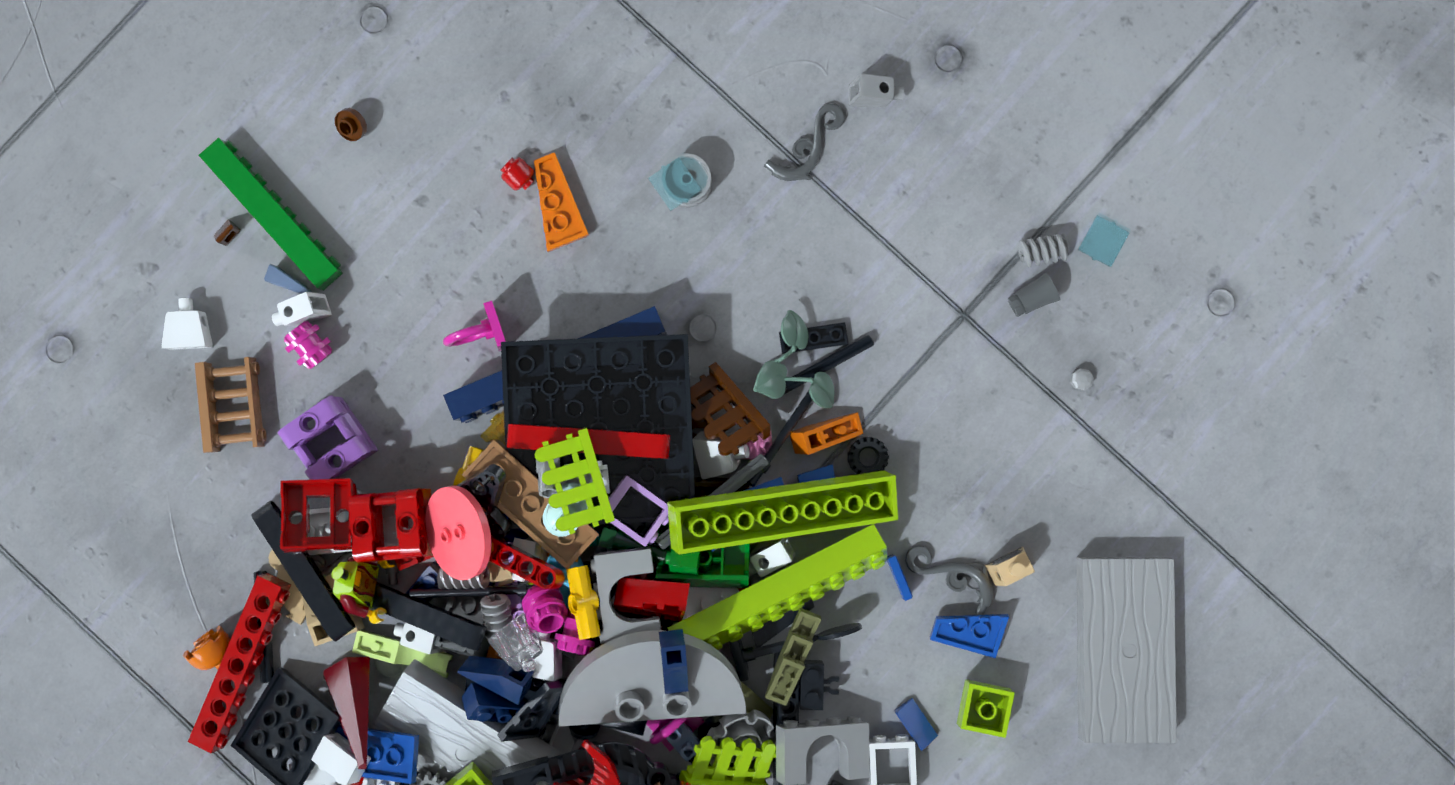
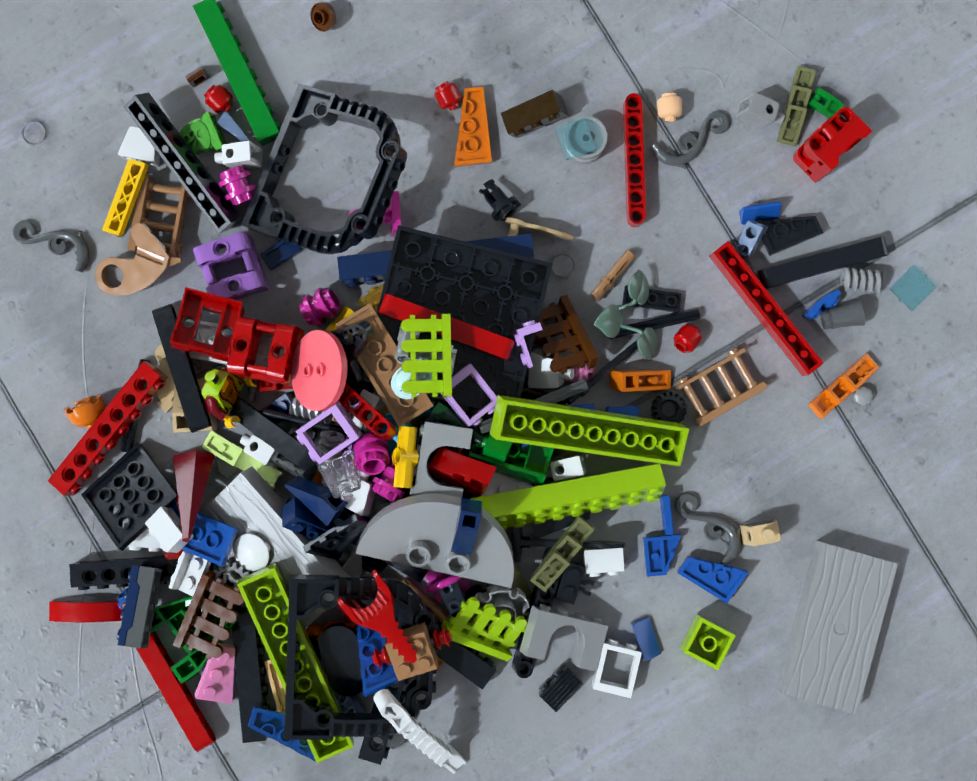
camera: 15 degrees right, 0 degrees up
(115, 462) = (53, 237): none -> dark grey plant
(184, 395) = (125, 197): none -> yellow fence
(225, 475) = (140, 272): none -> medium nougat animal
(238, 336) = (182, 162): none -> black brick
(251, 300) = (203, 134): none -> bright green piece
(258, 251) = (218, 99): none -> red head
(361, 235) = (307, 109): none -> black arch
(379, 405) = (280, 254): none -> dark blue tile
(438, 457) = (321, 306): none -> dark pink piece
(441, 756) = (251, 552): none -> white dish
(502, 582) = (345, 422): none -> lavender window
(610, 278) = (498, 200): none -> black piece
(621, 167) = (534, 114): none -> dark brown wedge
(635, 298) = (516, 224): none -> tan brick
(655, 753) = (439, 613): none -> medium nougat pin
(681, 416) = (529, 327): none -> lavender bracket
(744, 177) = (634, 151): none -> red beam
(758, 332) = (607, 282): none -> medium nougat pin
(771, 115) = (669, 107): none -> light nougat head
(842, 650) = (603, 560): none -> white brick
(866, 371) = (687, 338): none -> red head
(903, 623) = (659, 553): none -> blue wing
(905, 238) = (750, 238): none -> sand blue leg
(907, 206) = (760, 212): none -> blue slope
(914, 73) = (796, 105): none -> olive slope
(940, 421) = (737, 396): none -> medium nougat fence
(943, 220) = (789, 232): none -> black wing
(945, 314) = (766, 309): none -> red brick
(955, 63) = (829, 108): none -> green plate
(962, 106) = (829, 142): none -> red piece
(994, 242) = (823, 262): none -> black beam
(1009, 285) = (827, 301): none -> blue slope
(1057, 374) = (843, 386): none -> orange slope

